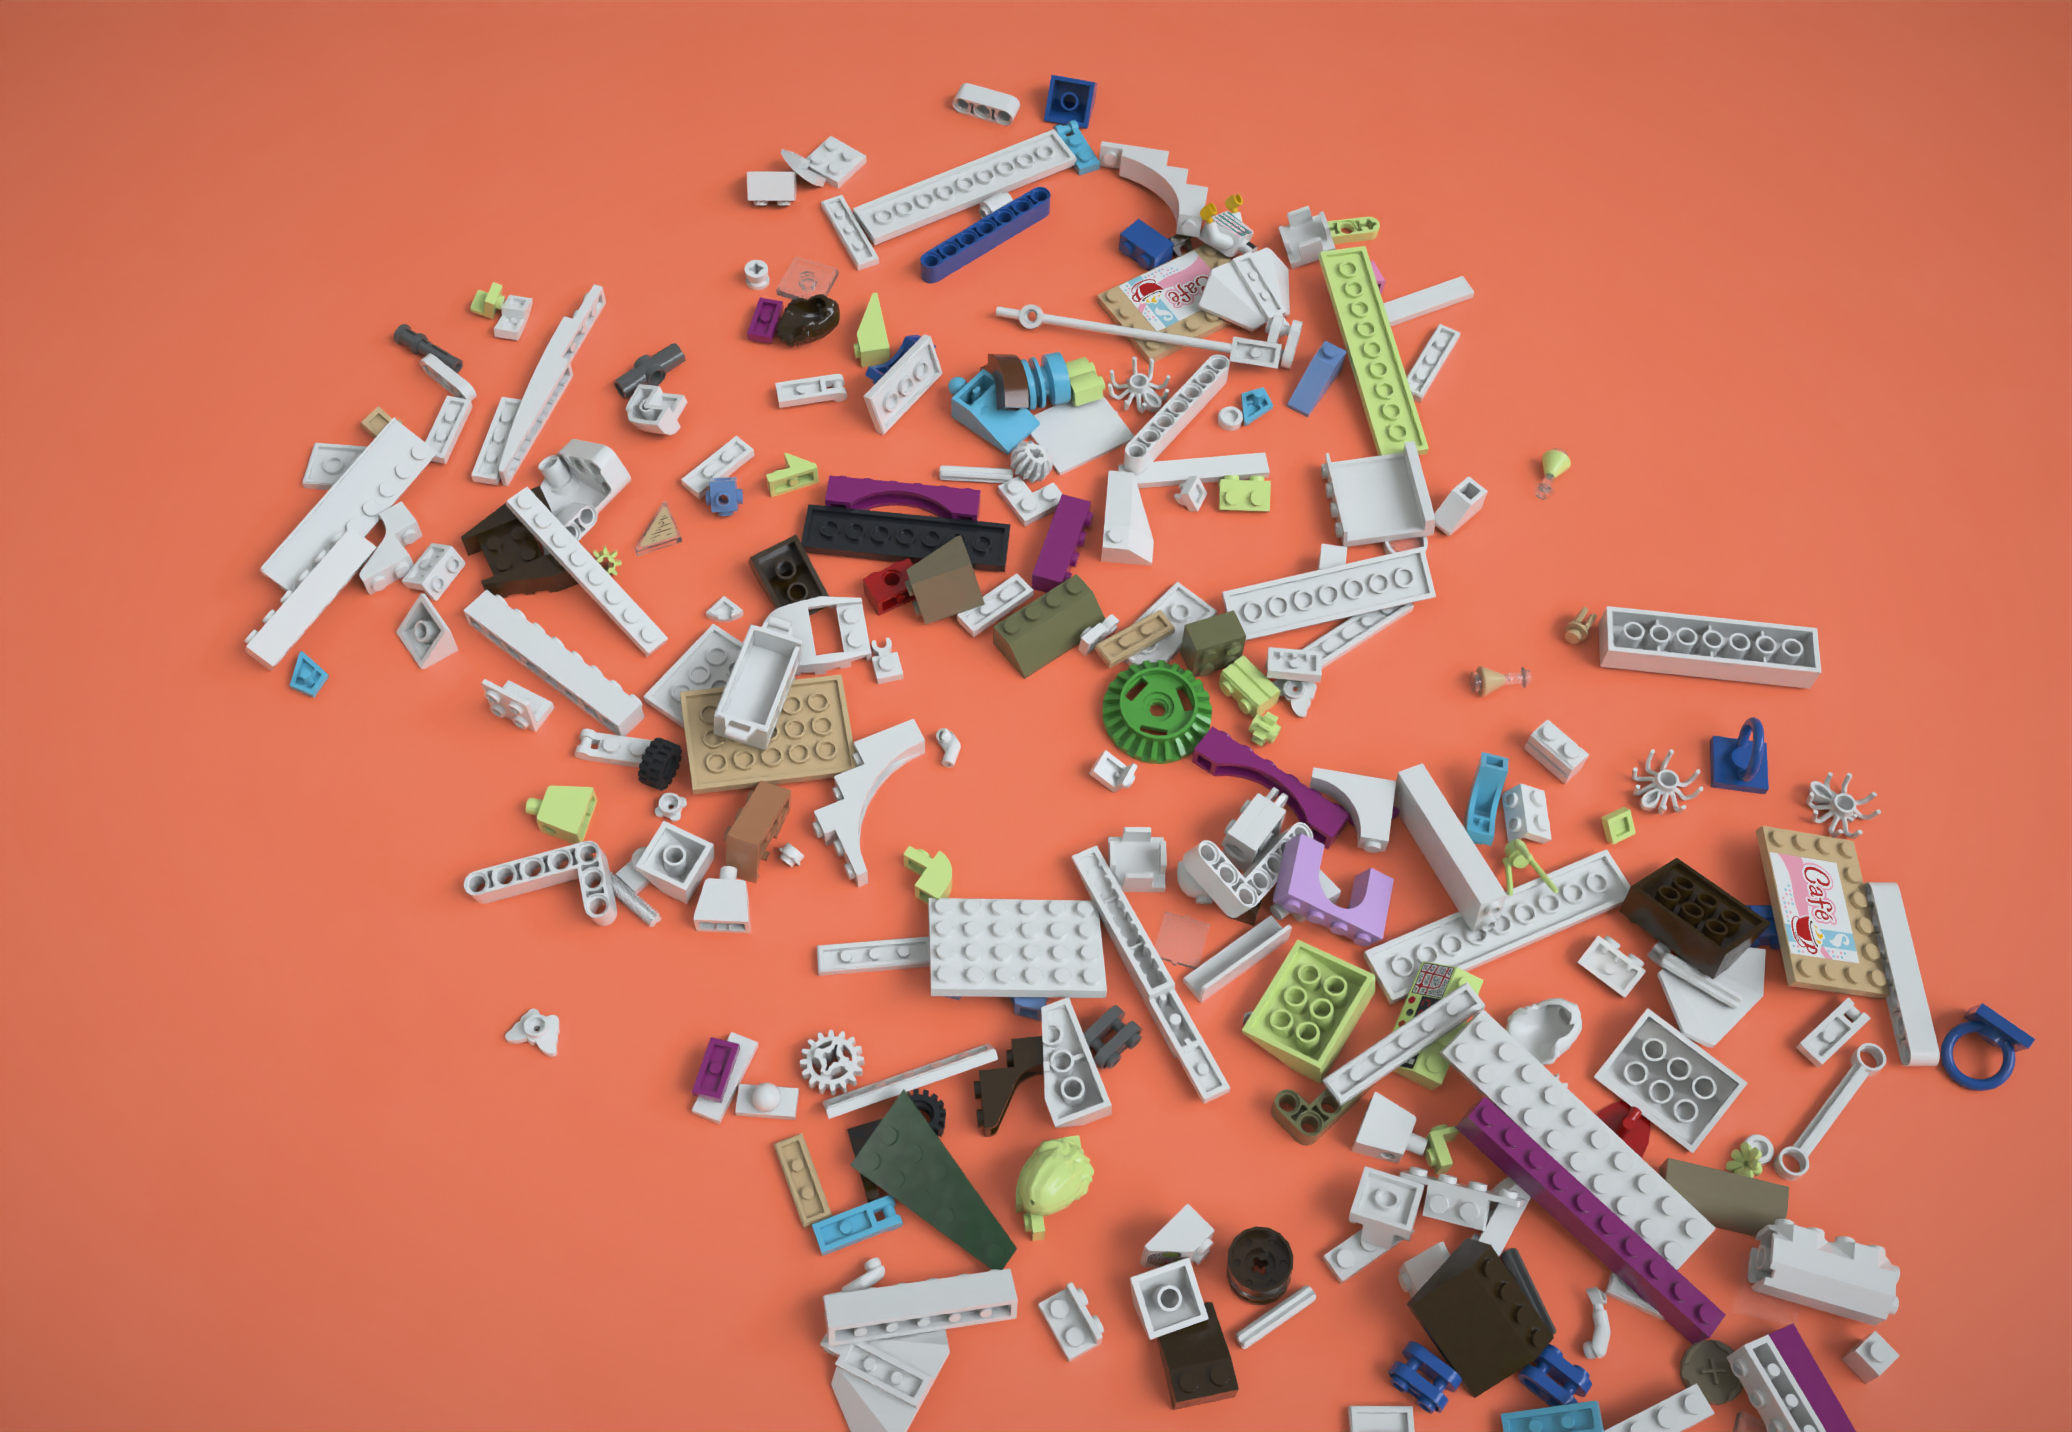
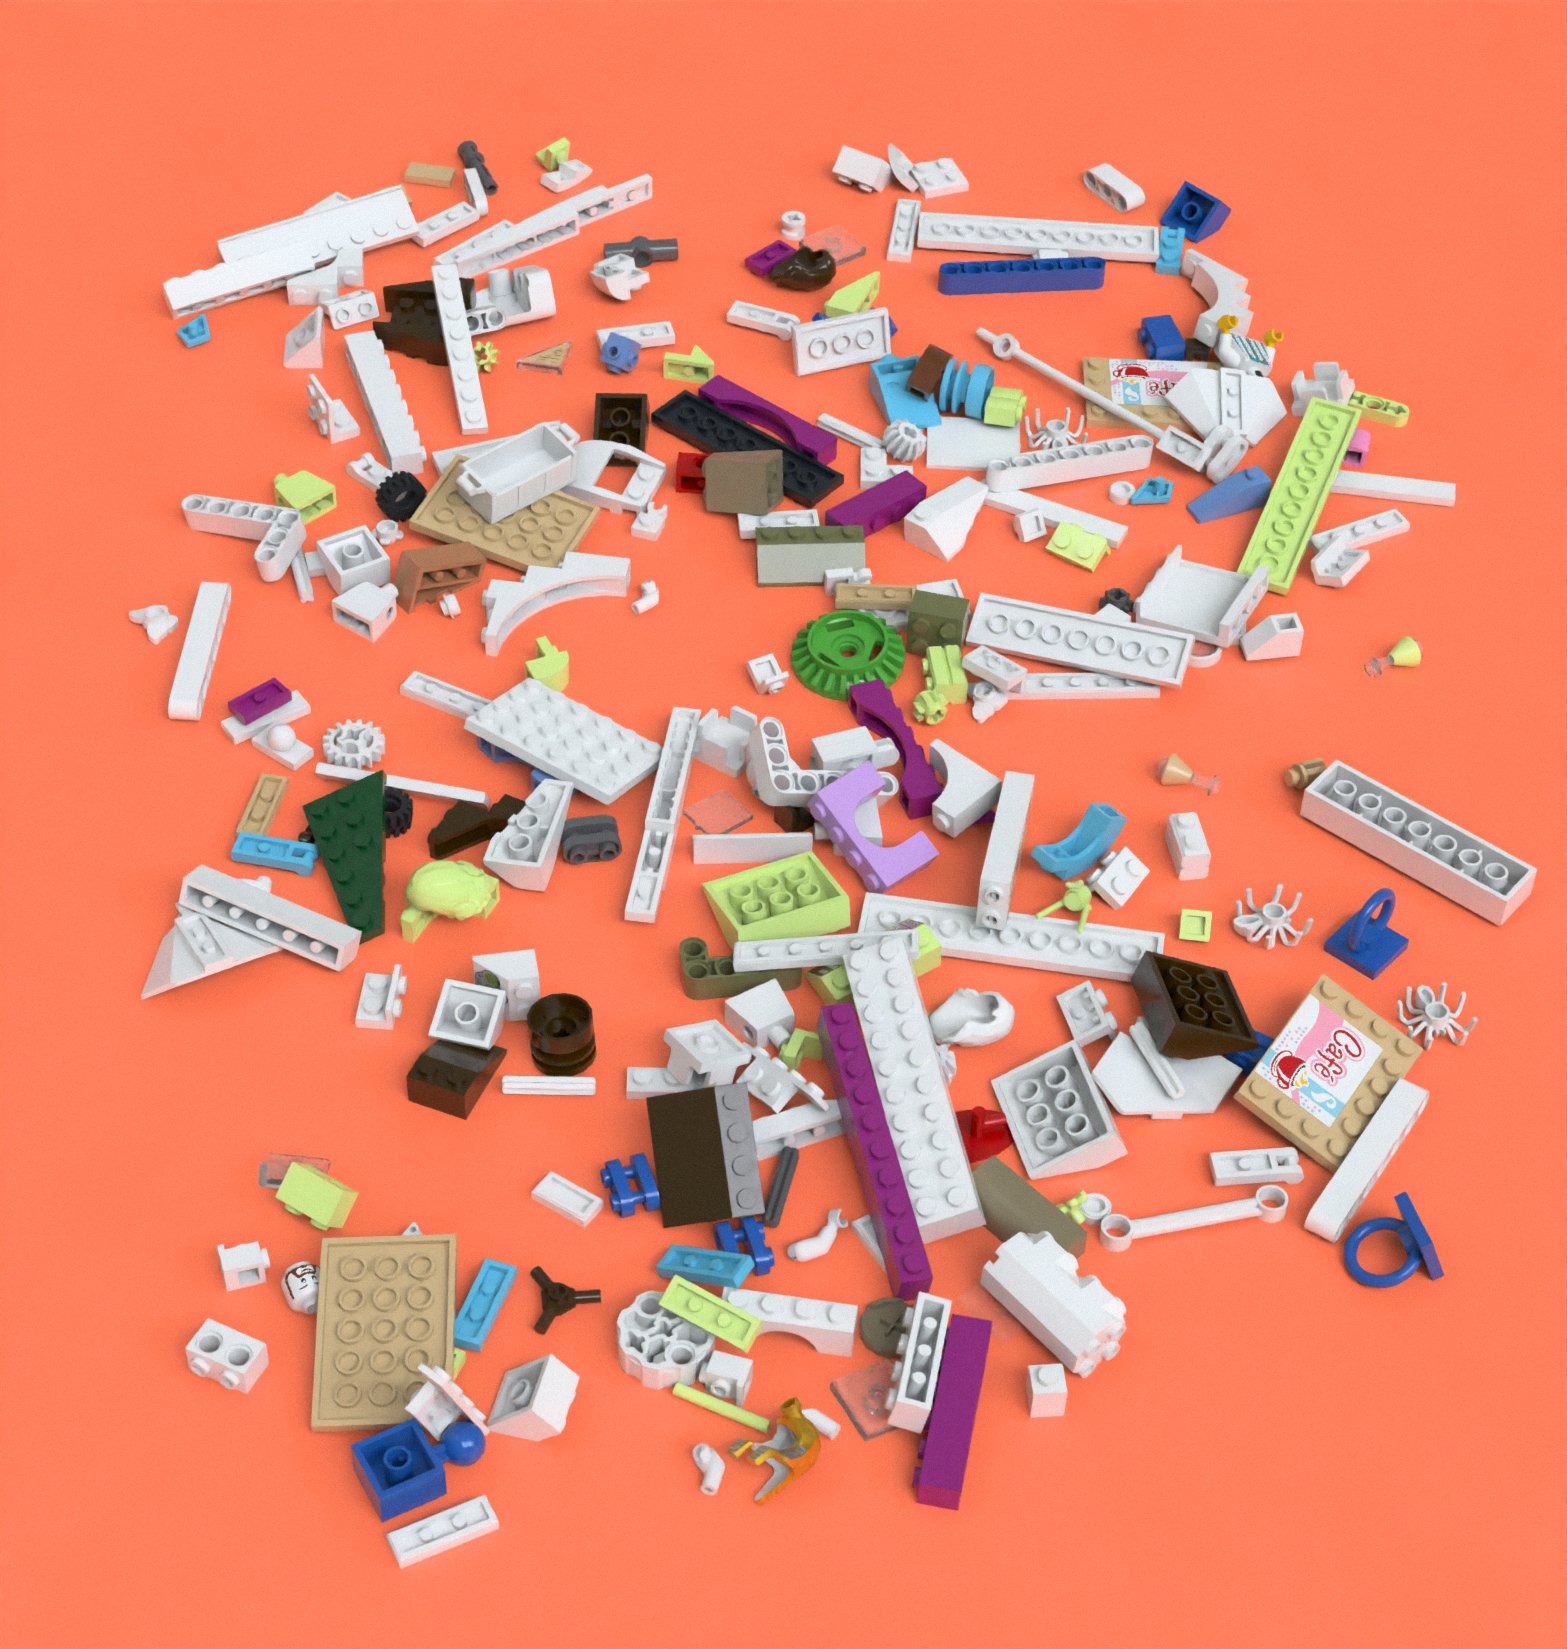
camera: 35 degrees right, 15 degrees down
(386, 378) = (430, 175): none -> tan tile
(610, 1043) = (199, 651): none -> white beam
(1318, 535) = (1117, 597): none -> dark grey gear
(1446, 403) = (1337, 564): none -> white bracket

